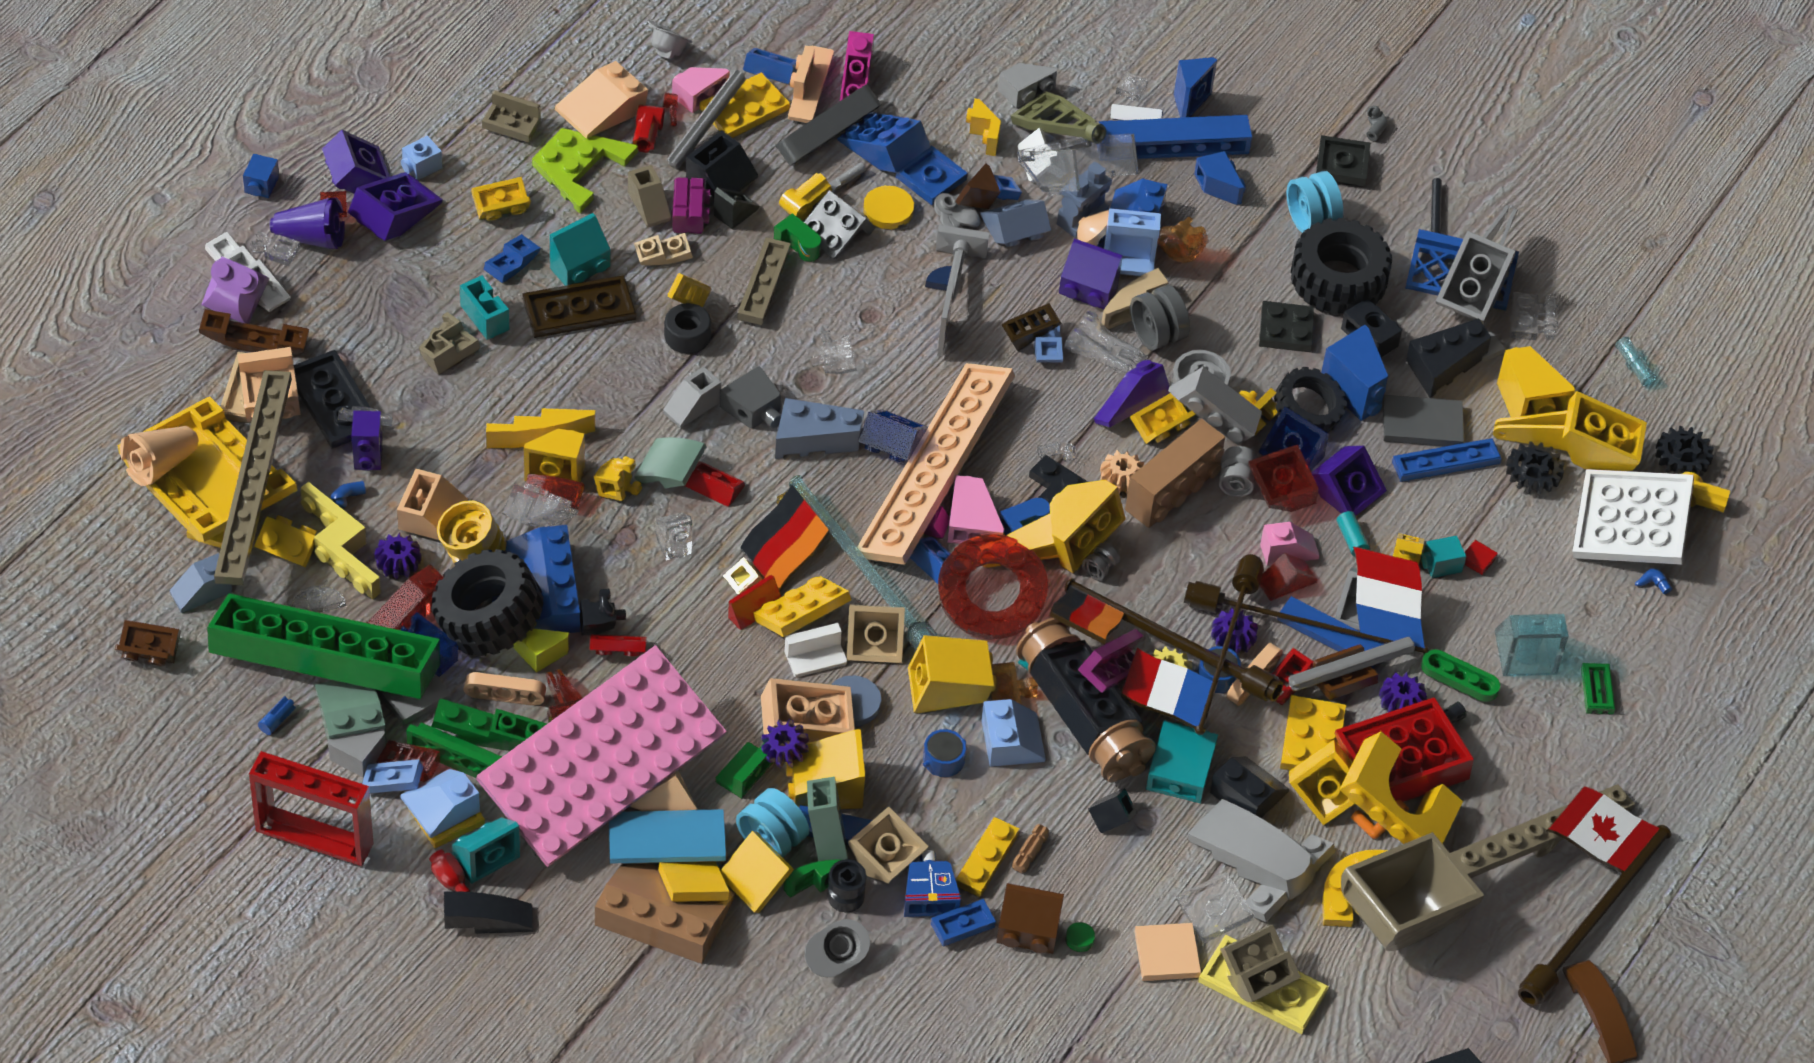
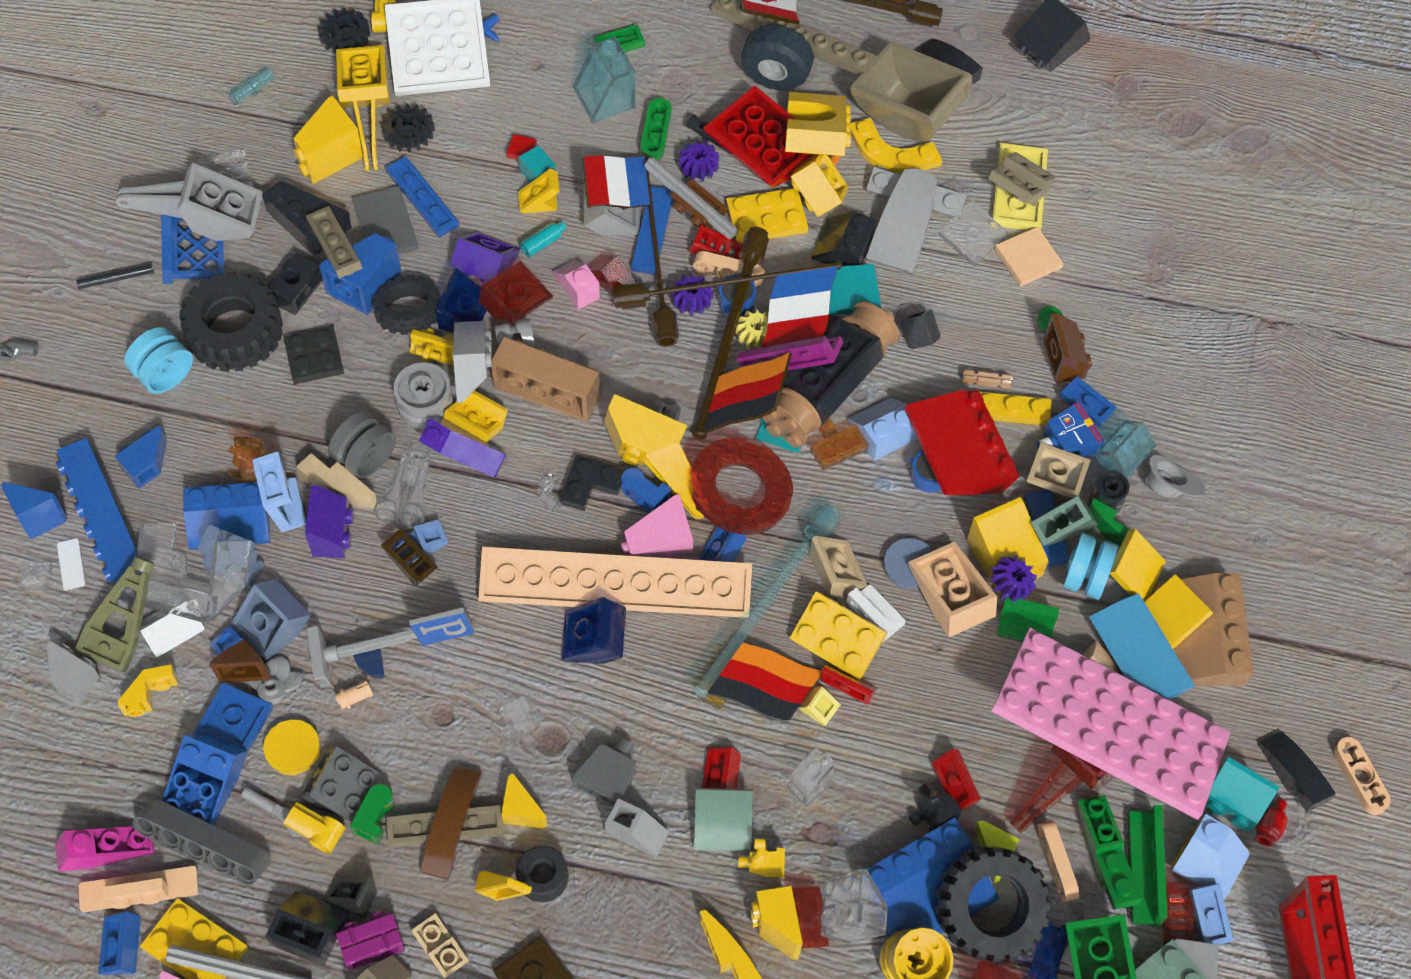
camera: 110 degrees left, 10 degrees up
(463, 980) = (1358, 787): none -> light nougat beam
(756, 333) = (520, 807): none -> yellow slope
(769, 281) = (449, 822): none -> reddish brown slope
(816, 428) = (622, 702): sand blue wedge -> none
(888, 921) = (1126, 448): none -> clear light blue brick
(915, 251) = (353, 694): none -> light nougat pin
(950, 673) = (856, 486): yellow slope -> none
(955, 772) = (962, 444): none -> red slope
(1093, 227) = (263, 531): light nougat hat -> none
(1119, 468) = (560, 421): light nougat gear -> none
(1344, 159) = (80, 363): pearl dark grey plate -> none
(1385, 336) = (334, 242): none -> dark tan plate
(1457, 979) = (953, 56): none -> black slope
(1508, 795) = (777, 57): none -> black wheel

